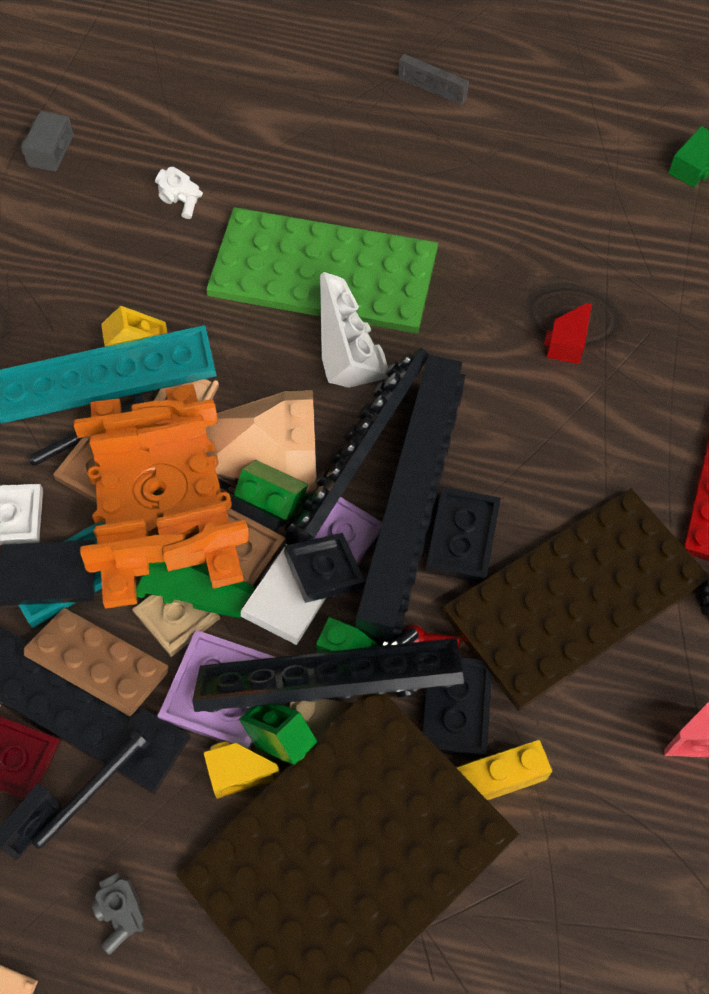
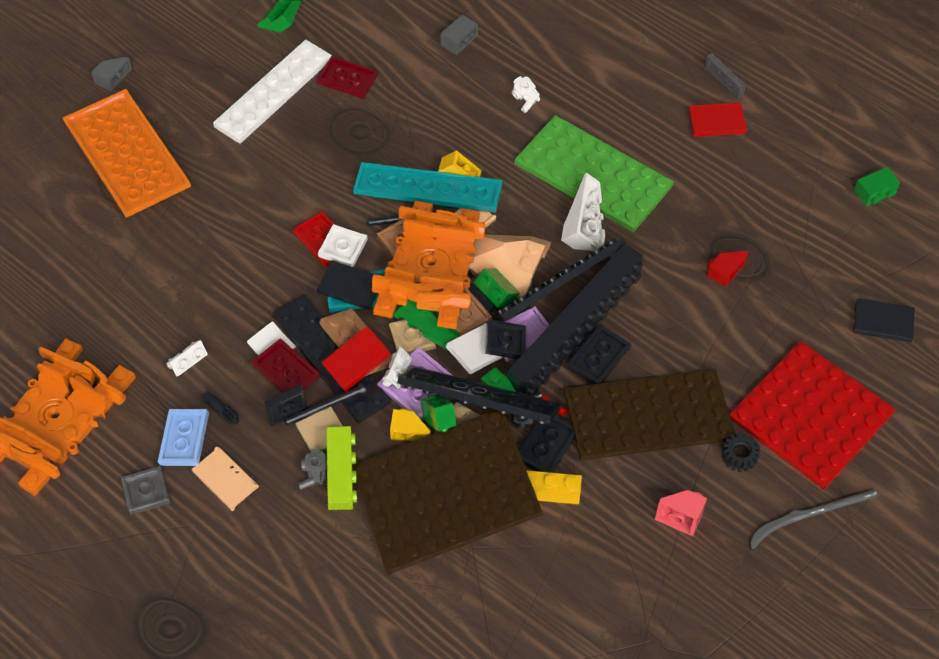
camera: 25 degrees right, 5 degrees down
(103, 835) = (314, 428): none -> tan tile
(109, 694) = (356, 358): none -> red tile
(160, 892) = (340, 468): none -> lime brick
(180, 674) = (399, 363): none -> white hinge
(450, 140) = (717, 119): none -> red tile

